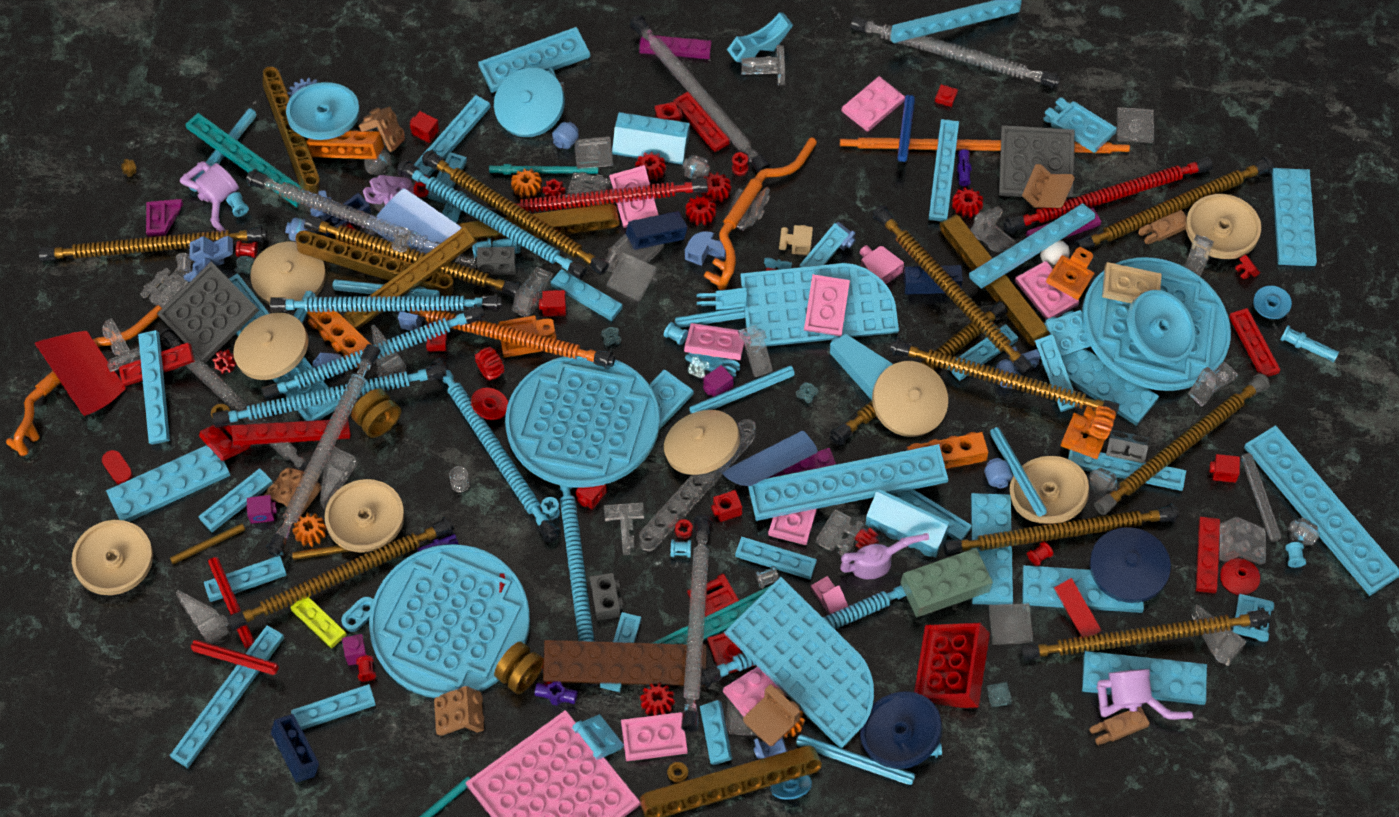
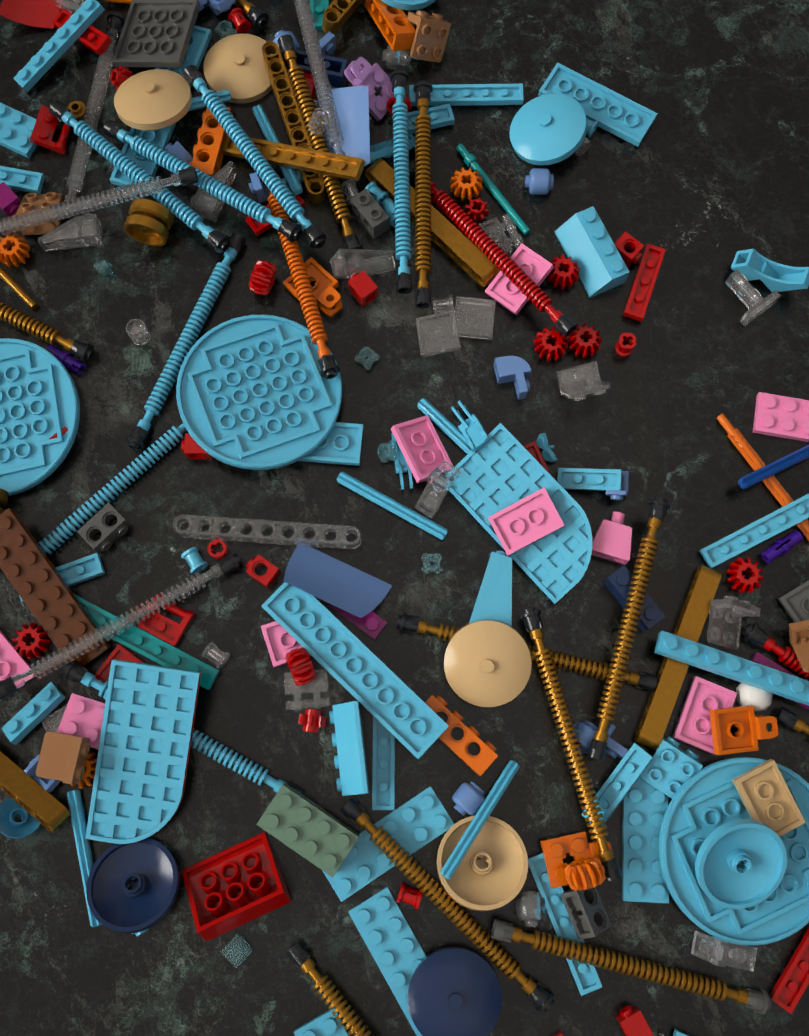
camera: 55 degrees right, 15 degrees up
(282, 432) = (82, 165): red plate -> none
(364, 515) = (49, 282): tan dish -> none
(381, 472) = (102, 266): none -> clear light blue plate
(424, 126) = (459, 67): red brick -> none
(489, 403) = (225, 295): red dish -> none
(548, 508) = (153, 421): medium azure bush -> none
(586, 295) = (393, 312): medium azure plate -> none
(593, 152) = (540, 216): clear plate -> none
(625, 513) = (185, 497): clear bracket -> none
(656, 230) = (497, 320): dark blue brick -> none
(675, 333) = (407, 408): medium azure bush -> none
(681, 47) = (707, 208): magenta plate -> none
(696, 167) = (591, 310): clear head -> none
(698, 93) = (670, 260): clear hose -> none
(702, 442) = (308, 507): tan dish -> none
(718, 381) = (383, 478): magenta brick -> none
(741, 207) = (582, 375): orange piece -> none
(774, 556) = (241, 650): medium azure plate -> none
(800, 239) = (585, 451): tan brick -> none
(822, 517) = (300, 666): none -> red gear
(829, 595) = (234, 725): bright pink slope -> none
(875, 559) = (295, 744): lavender piece -> none
(984, 351) = (590, 698): medium azure plate -> none
(1010, 624) = (316, 915): clear plate -> none
(1077, 608) = (372, 973): red tile -> none

